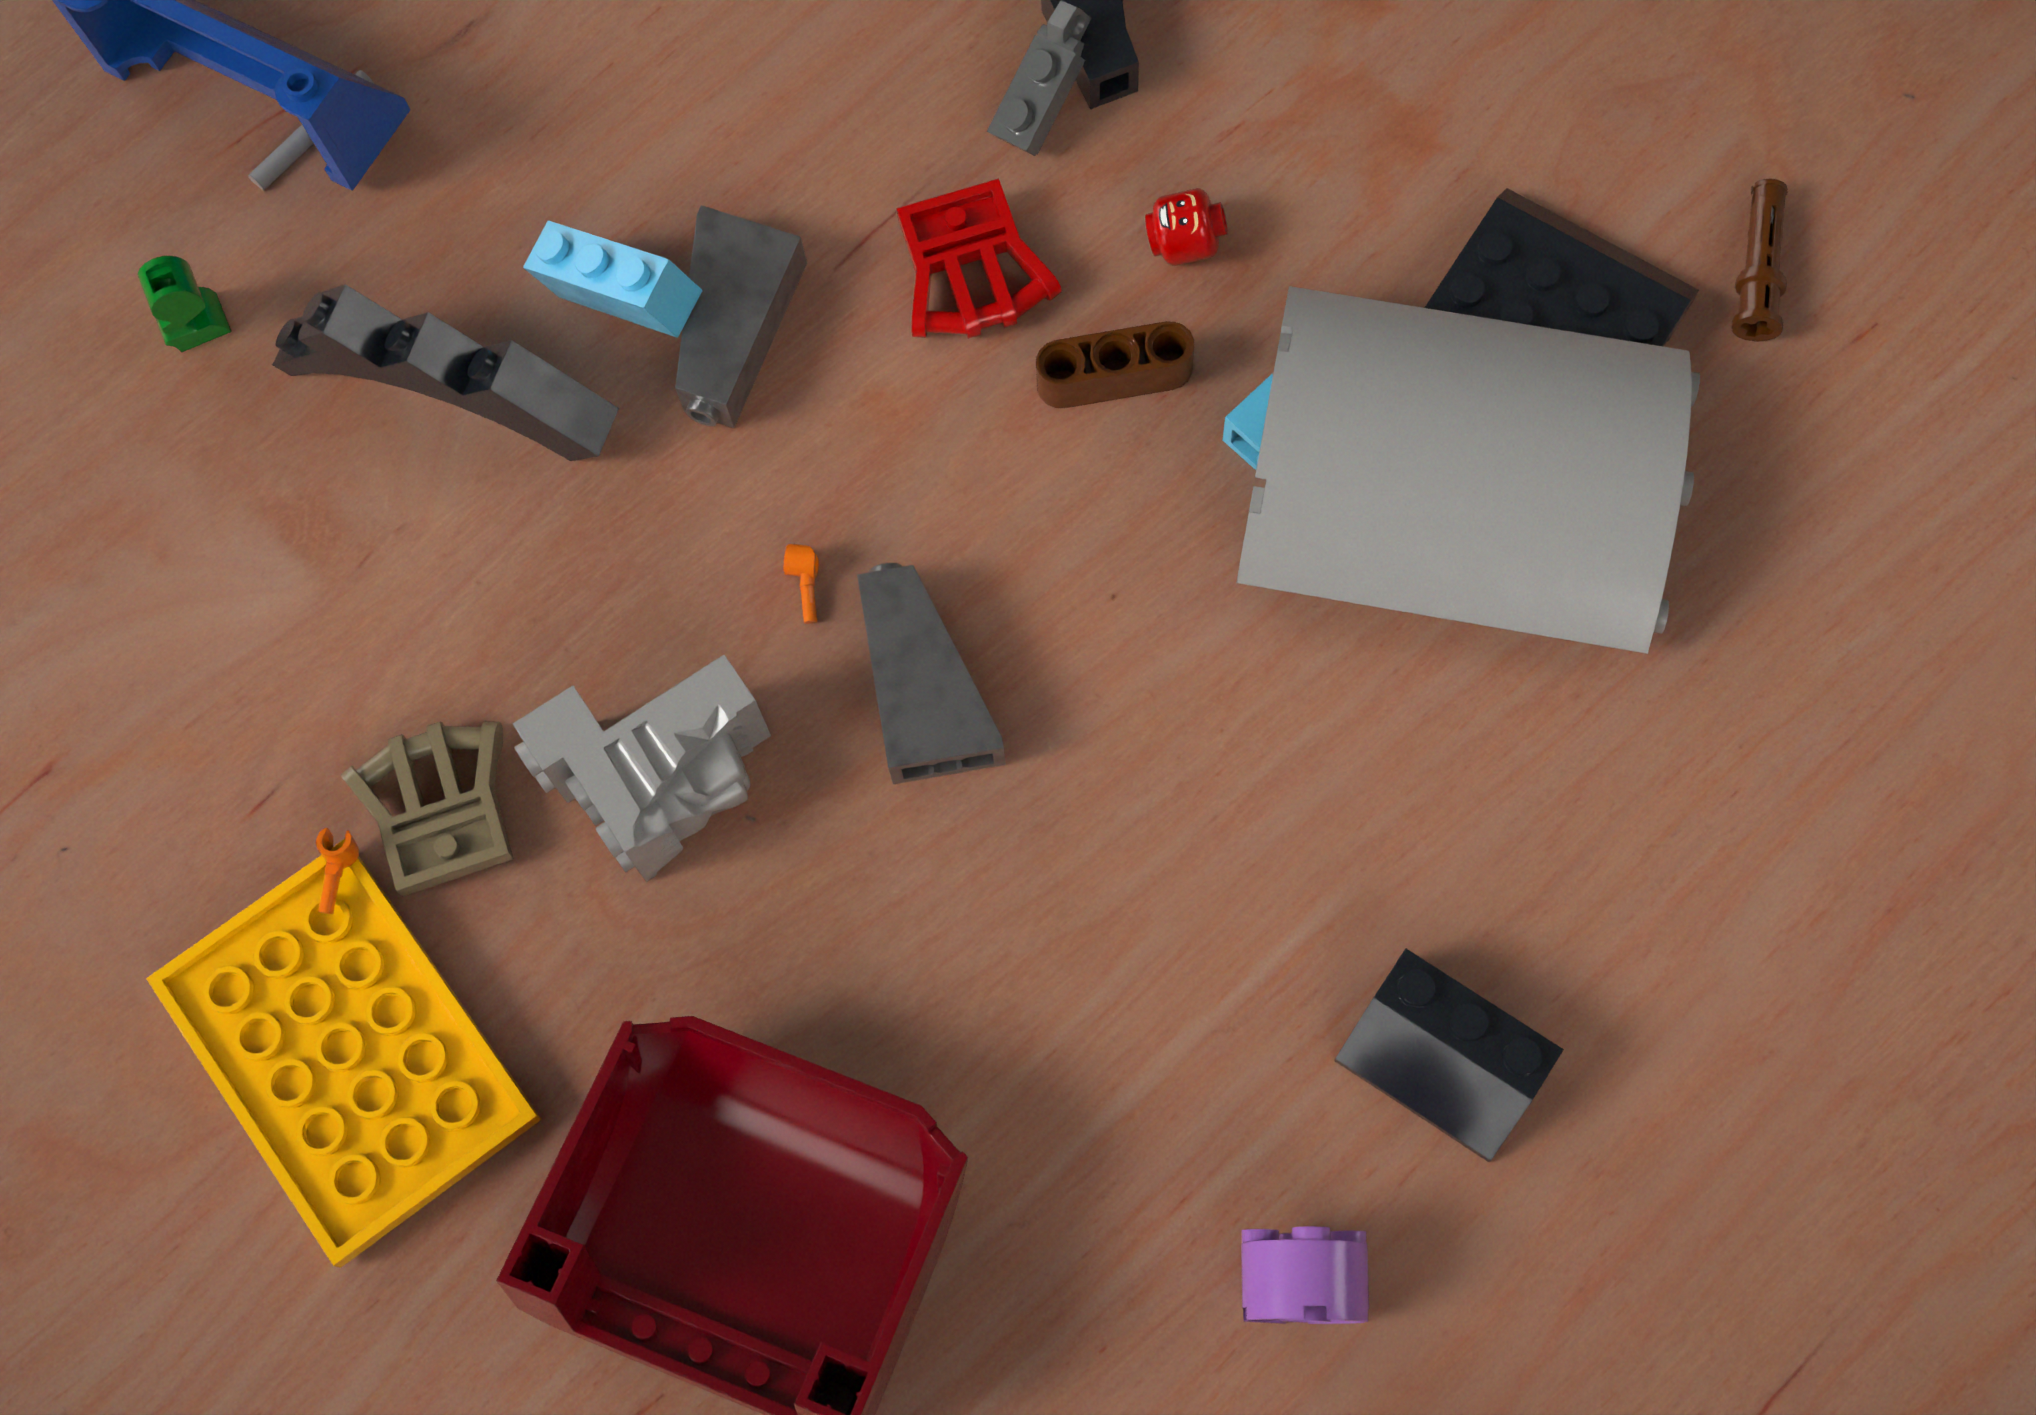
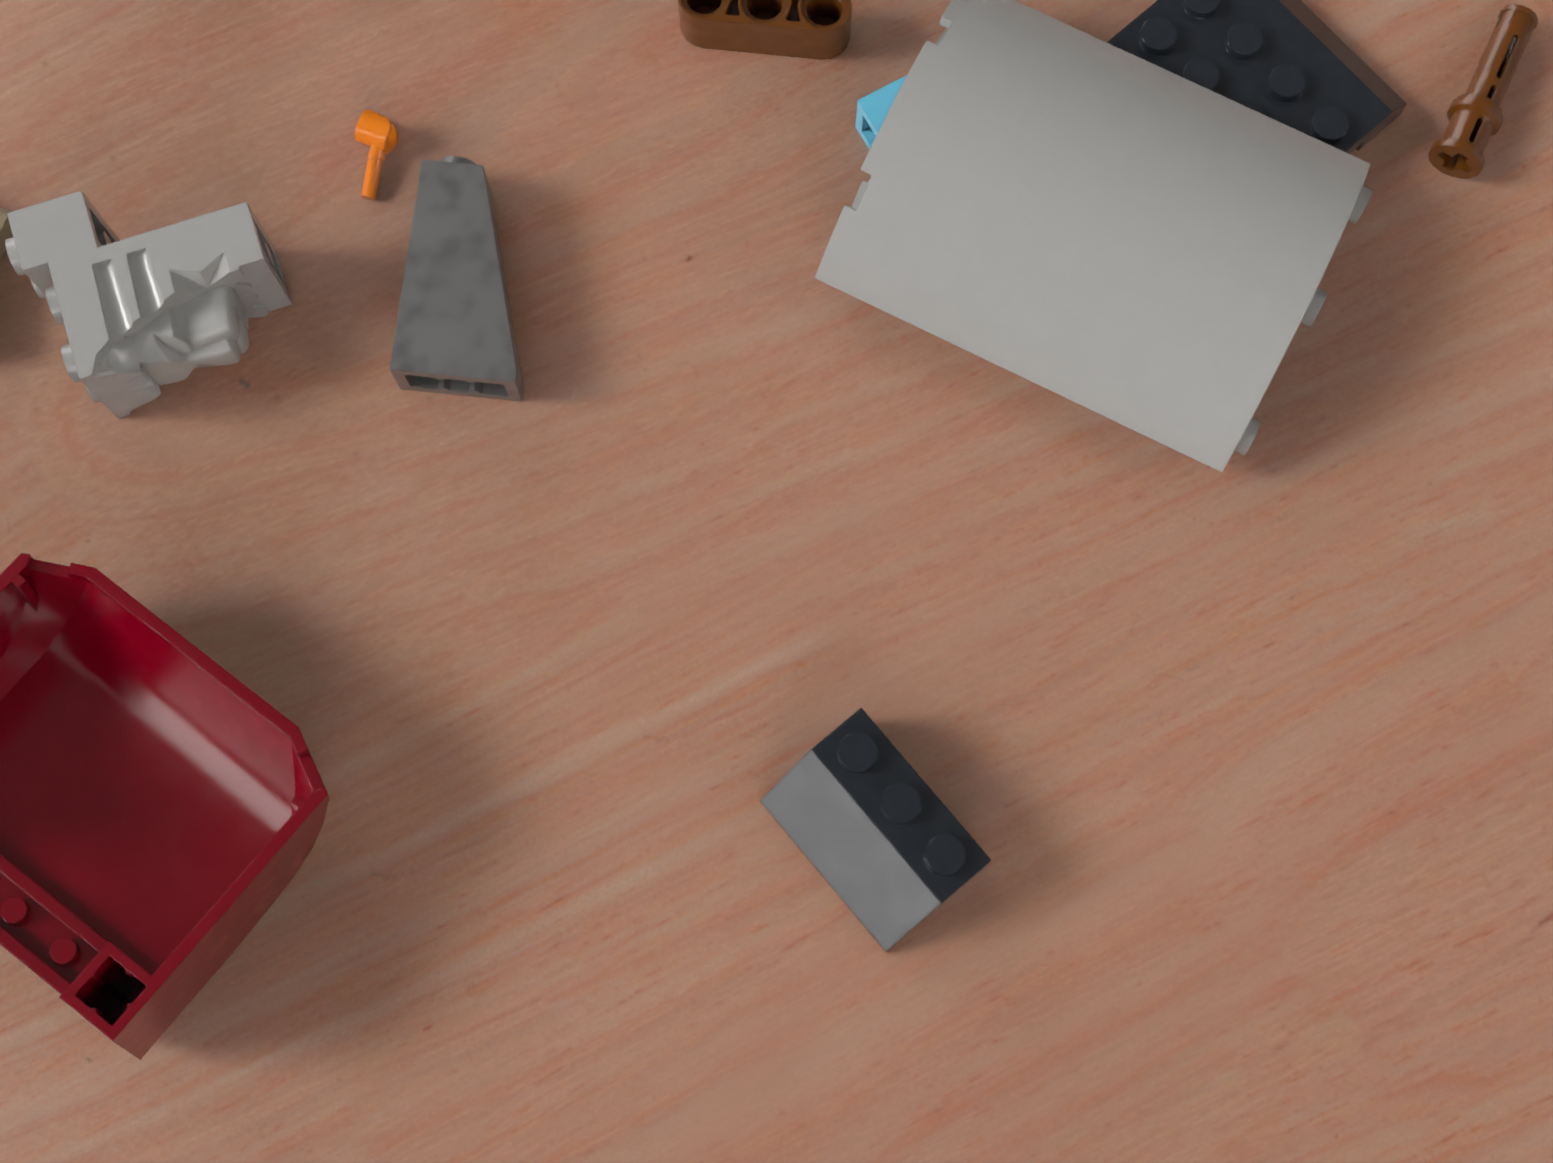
camera: 10 degrees right, 5 degrees up
(1305, 1276) = (646, 1017): medium lavender brick -> none

